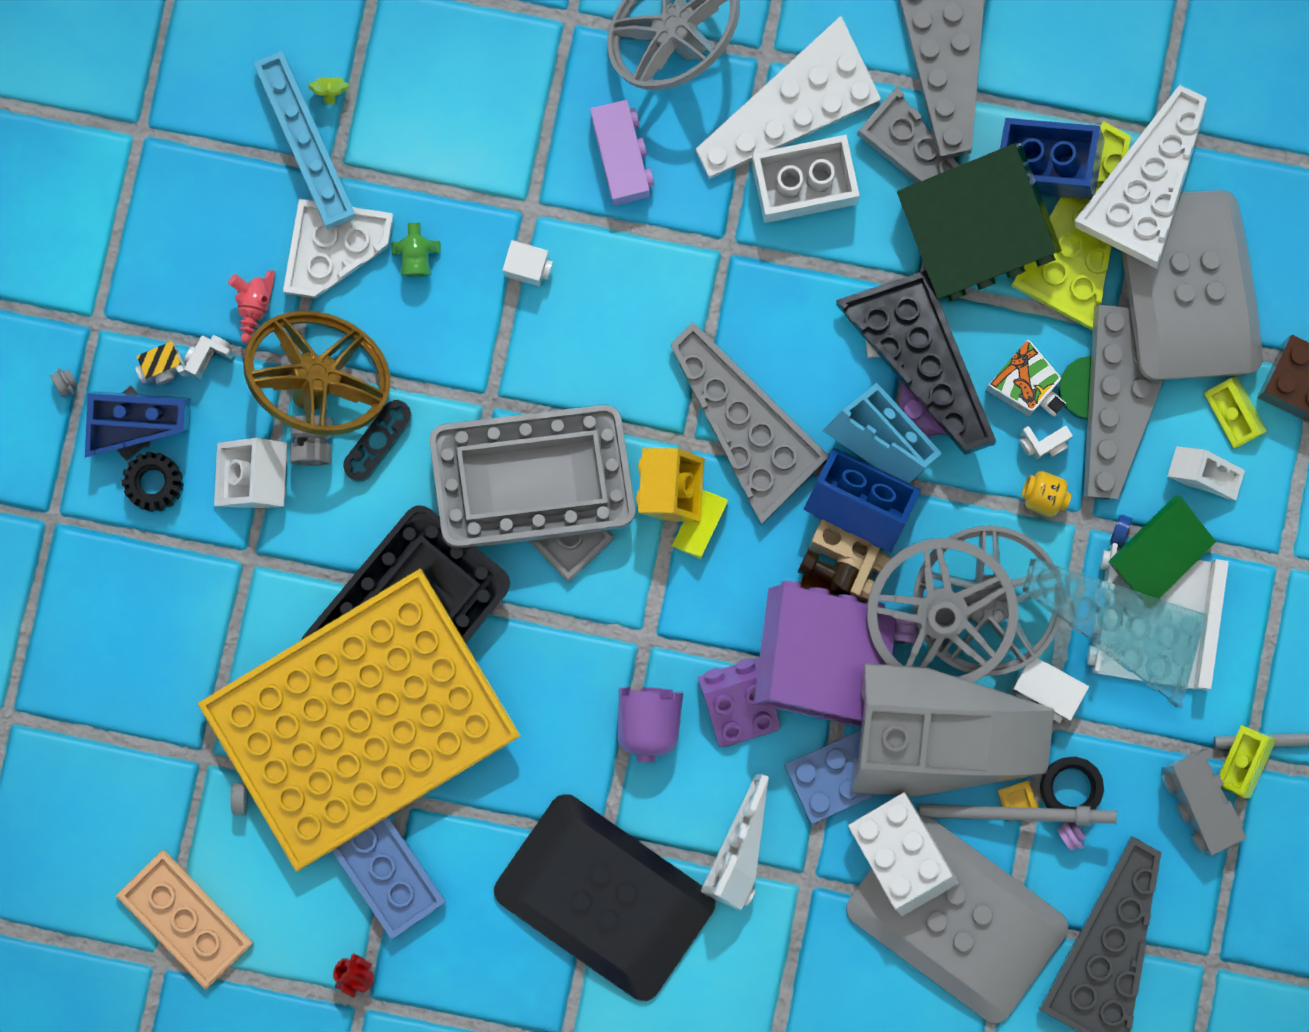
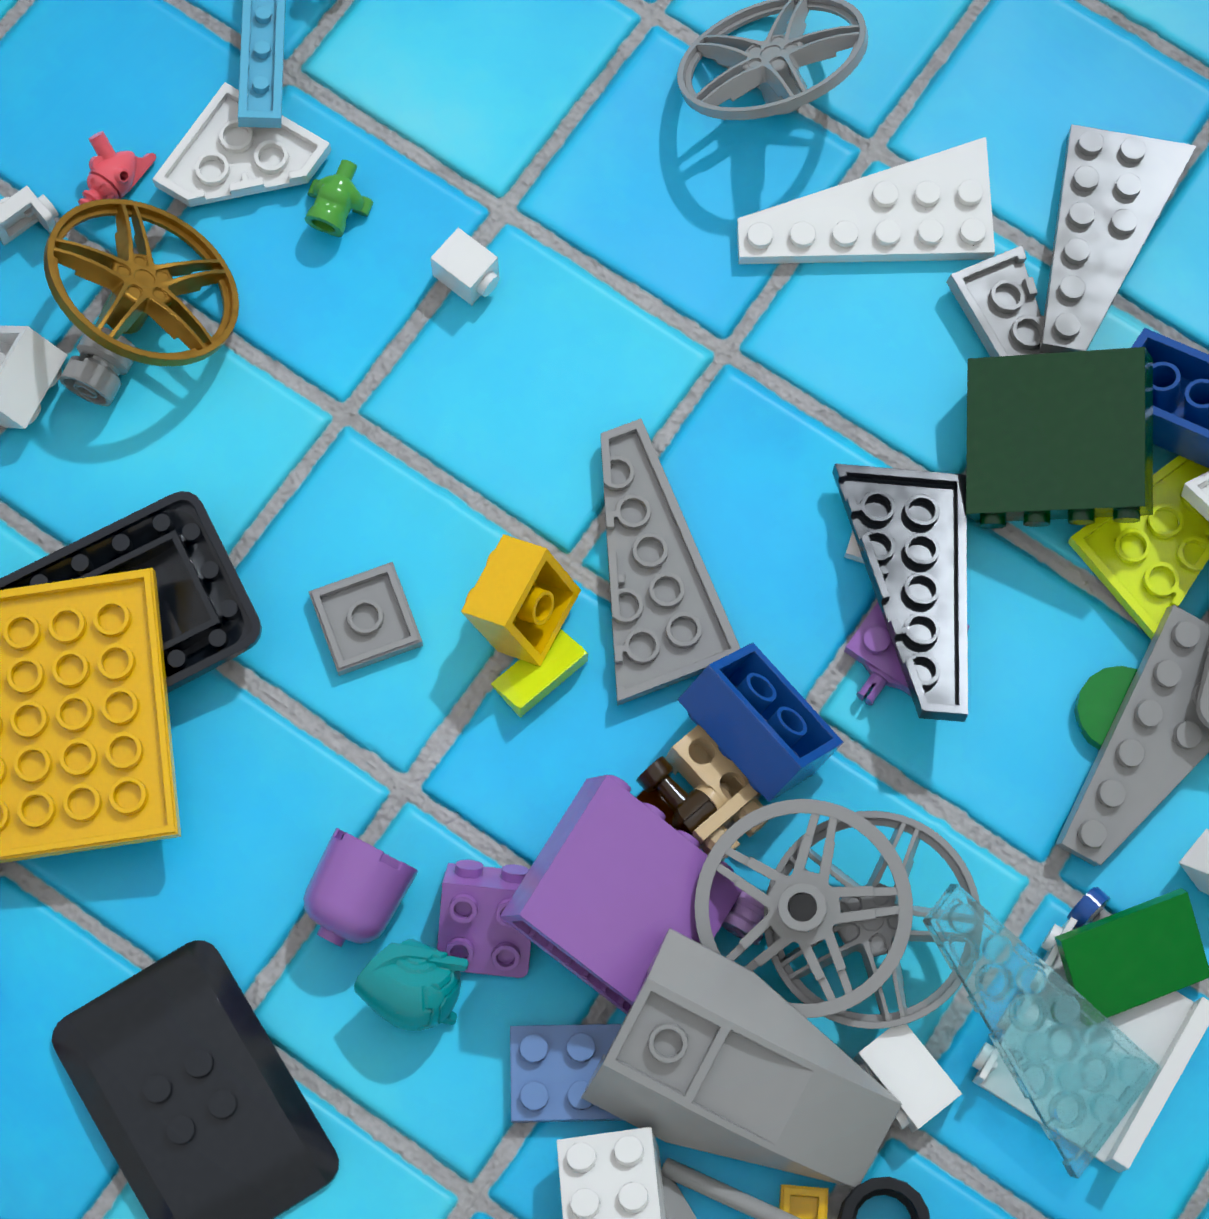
camera: 20 degrees right, 10 degrees down
(357, 455) = (148, 406): black beam -> none
(531, 476) = (349, 518): light grey wedge -> none
(621, 152) = (643, 185): lavender brick -> none
(713, 767) = (412, 985): none -> teal helmet
(736, 863) = (386, 1129): white wedge -> none
(805, 178) = (858, 303): white brick -> none
(883, 435) = (823, 652): medium azure wedge -> none
(1027, 382) = (1040, 667): torso -> none
(1046, 494) = (1007, 818): yellow head -> none
(1052, 444) = (1042, 758): white bracket -> none

